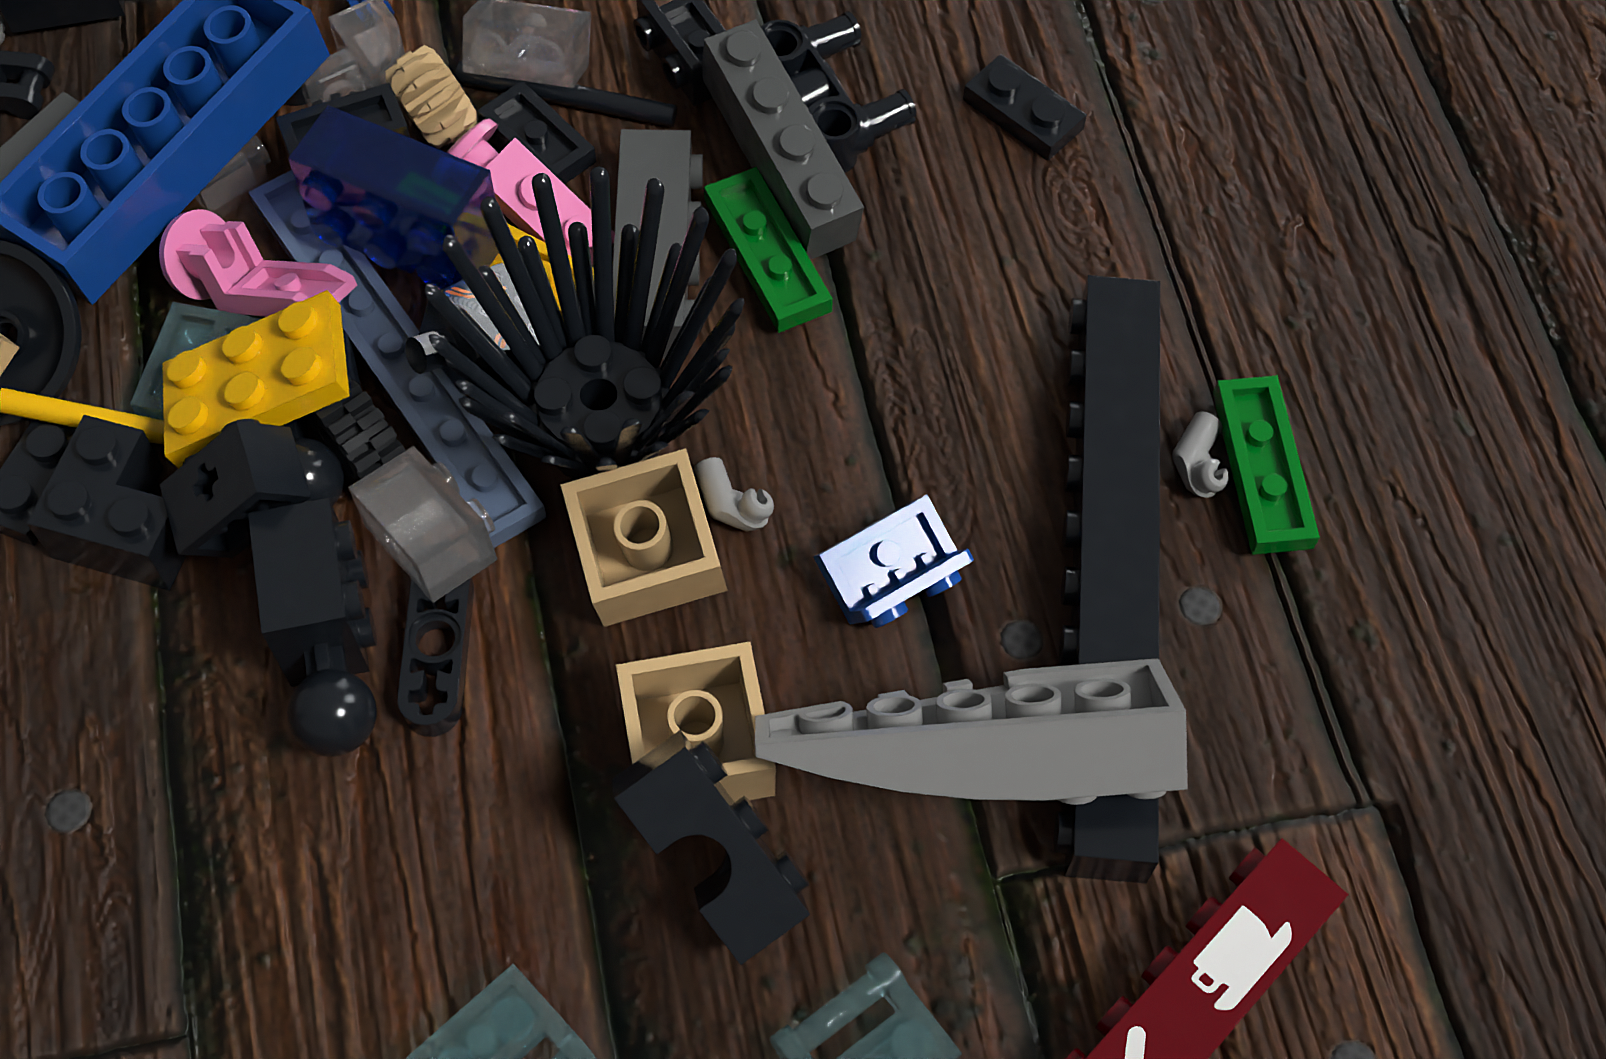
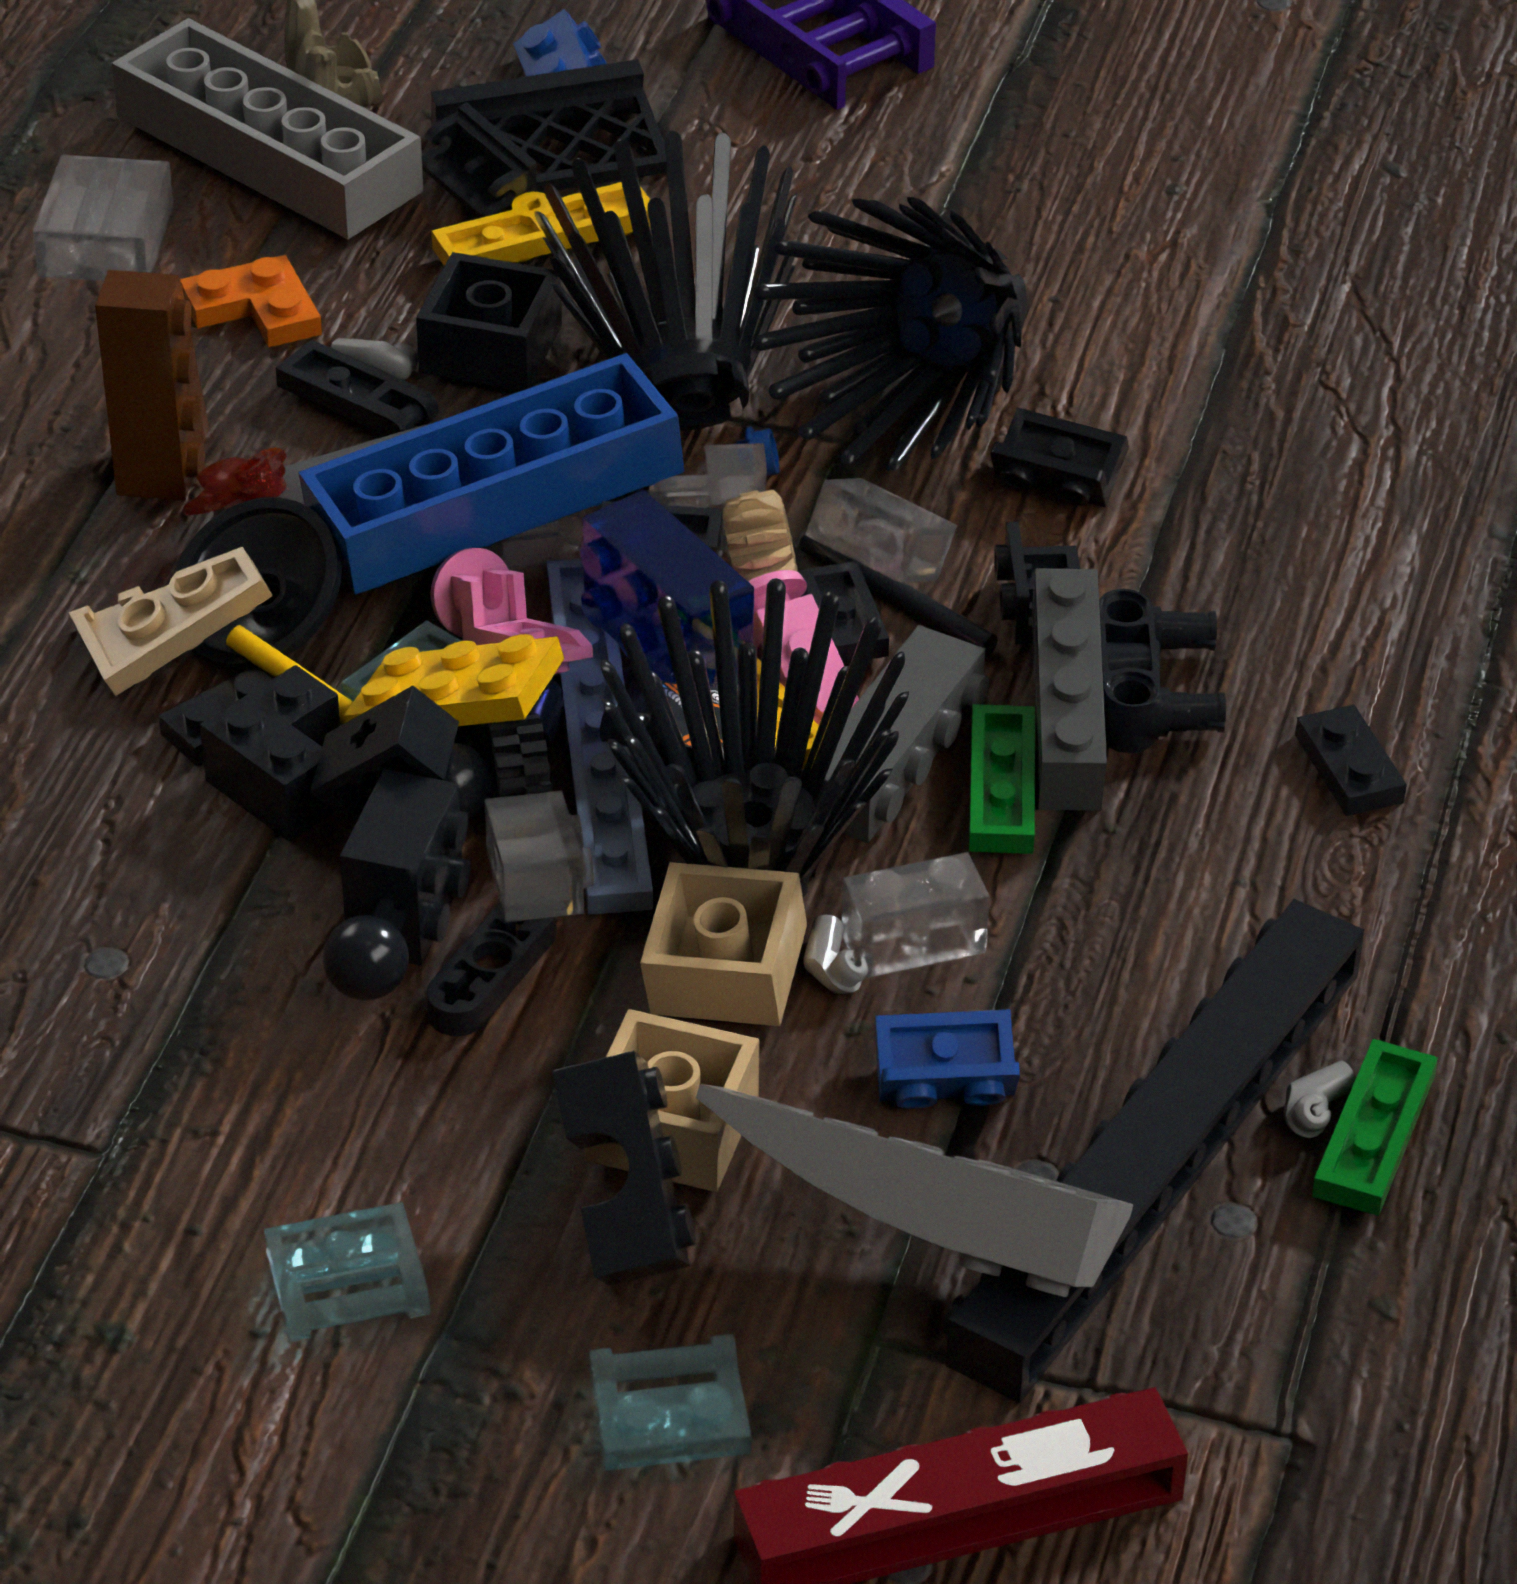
camera: 30 degrees right, 20 degrees down
(783, 425) = (915, 914): none -> clear brick

